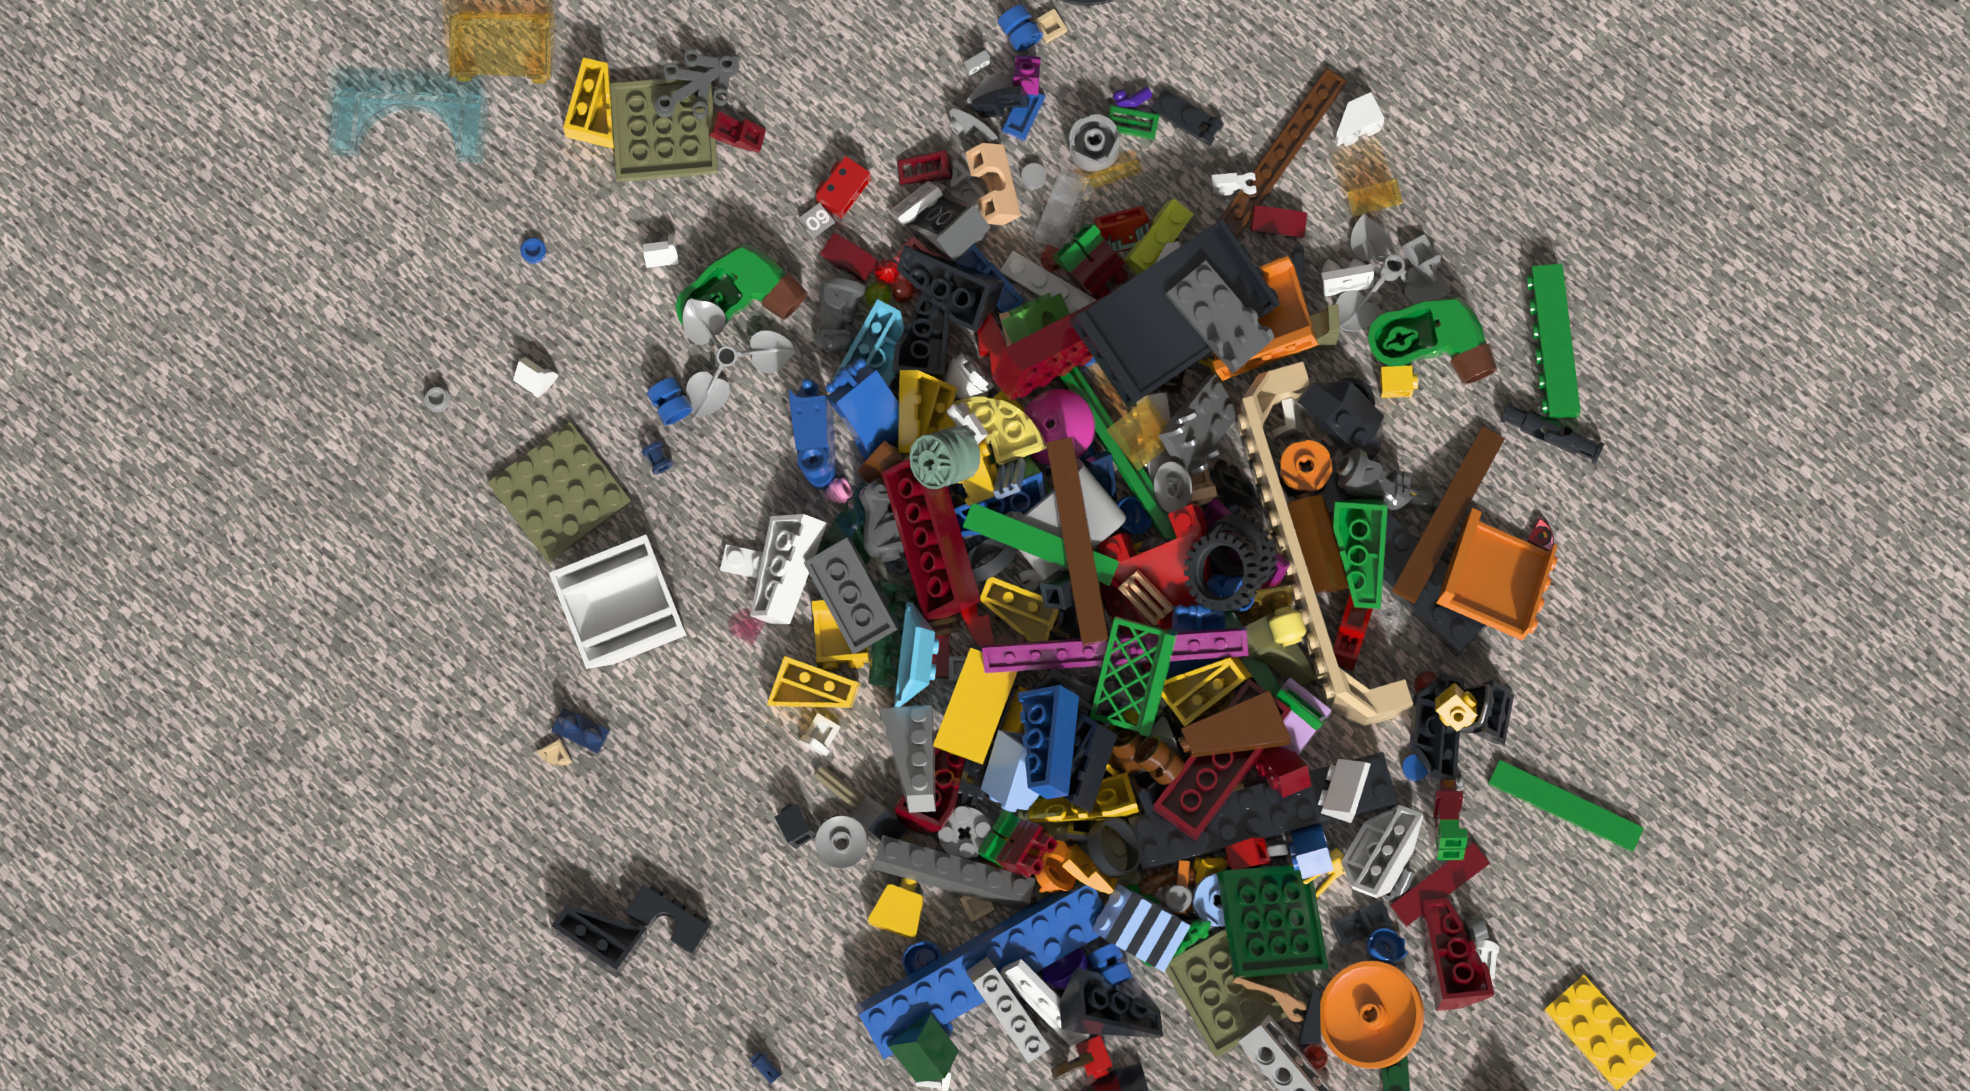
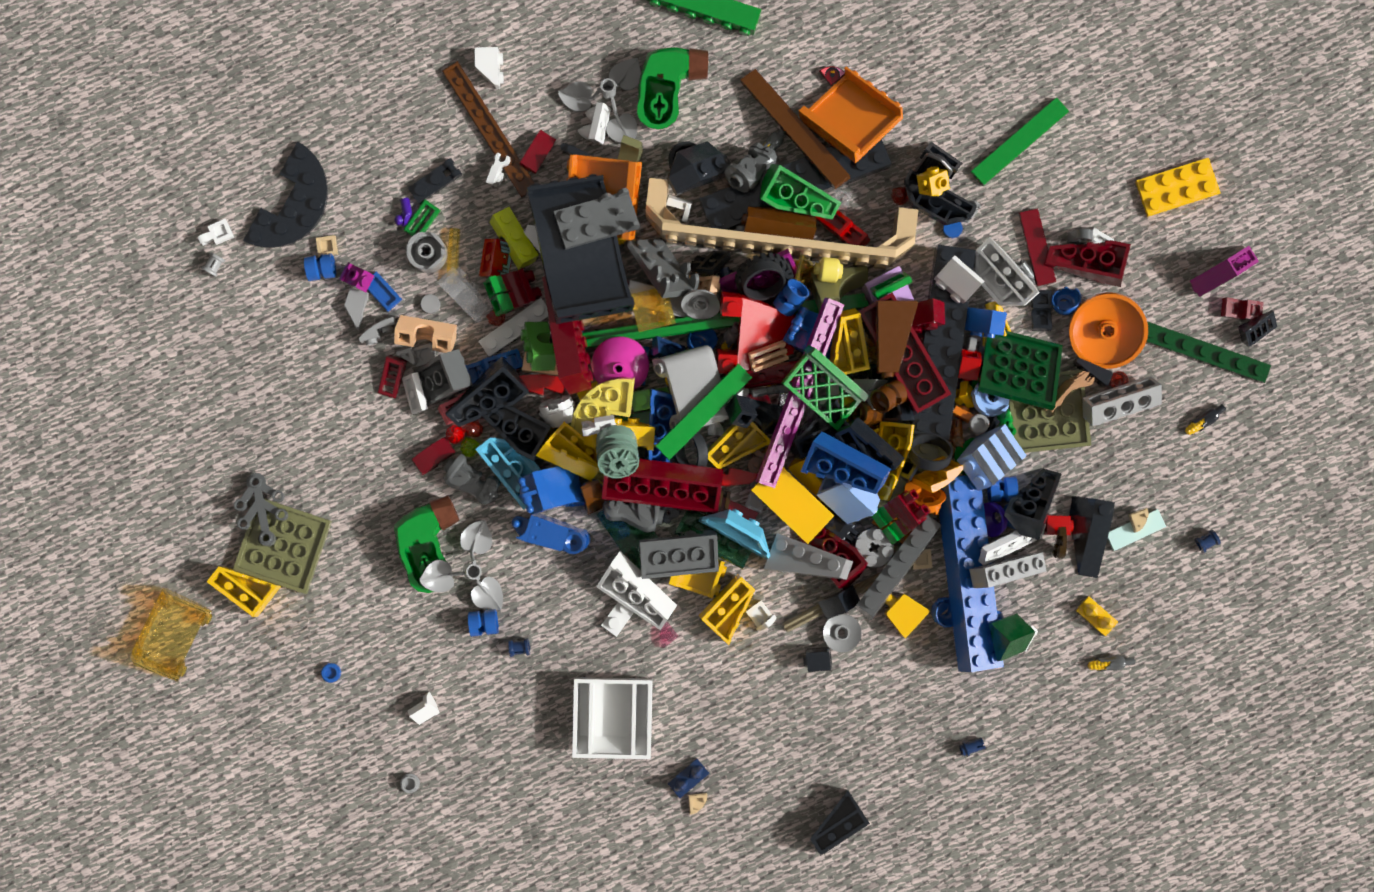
camera: 70 degrees left, 10 degrees up
(358, 111) = (174, 757): clear light blue arch -> none
(559, 492) = (513, 725): olive plate -> none
(651, 905) = (830, 778): black arch -> none
(661, 252) = (373, 584): white tile -> none
(739, 134) = (309, 495): dark red slope -> none
(817, 220) = (396, 466): light grey tile -> none
(838, 490) = (596, 532): bright pink plate -> none
(842, 187) = (381, 439): red brick -> none
(976, 63) = (332, 310): light grey tile -> none
(994, 102) = (367, 308): black slope -> none
(1005, 480) = (645, 416): sand blue tile -> none
(1077, 541) = (714, 385): reddish brown tile -> none
(1196, 571) = (780, 274): black tyre -> none
(1301, 452) = (721, 219): orange plate -> none
(1373, 198) = (550, 79): clear yellow brick -> none
(1397, 381) = (685, 122): yellow brick -> none
(1422, 257) = (606, 66): light grey slope -> none
(1446, 810) = (1001, 222): hips -> none
(1570, 441) = (776, 23): black piece -> none

